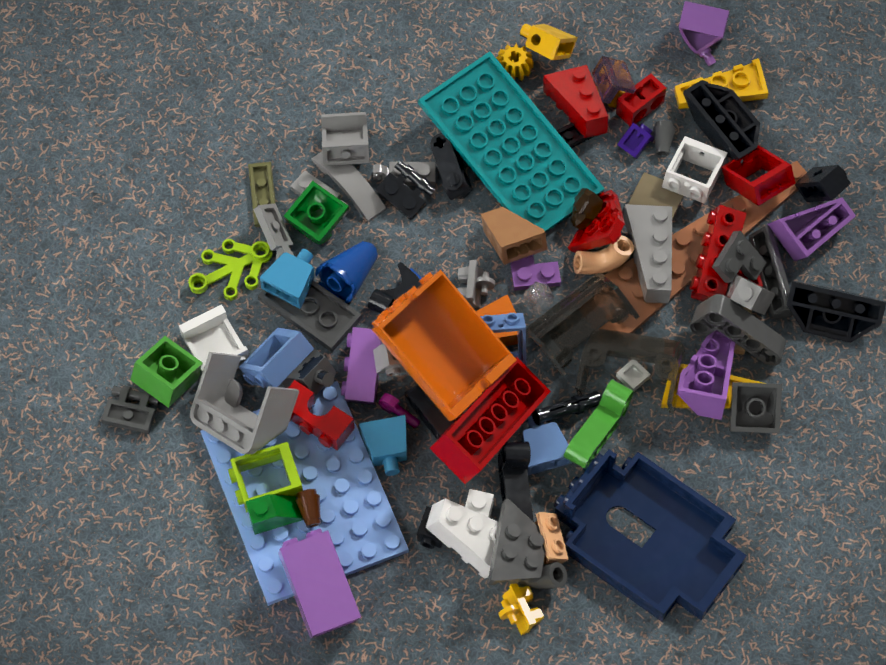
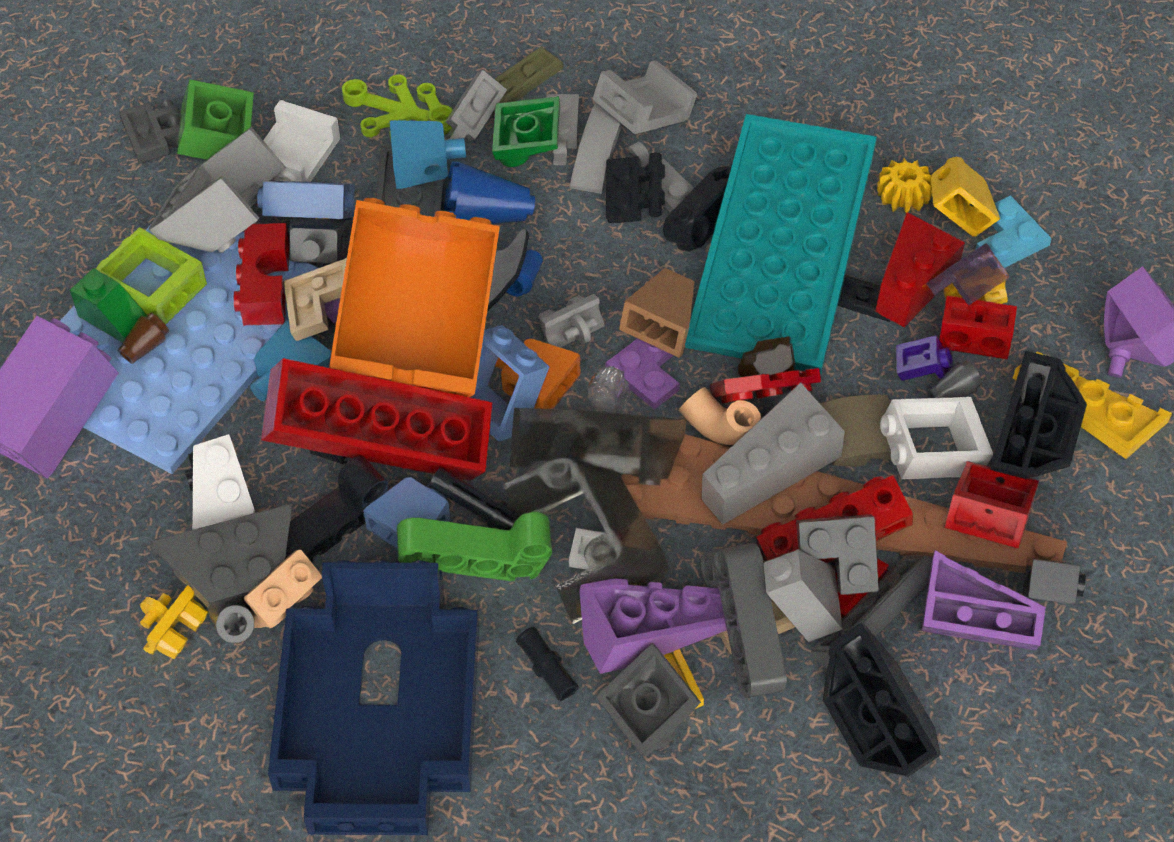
camera: 55 degrees right, 10 degrees down
(356, 400) = (307, 298): none -> tan plate
(480, 502) = (273, 491): white brick -> none
(590, 37) = (1017, 234): none -> medium azure plate
(688, 442) = (547, 663): none -> black pin

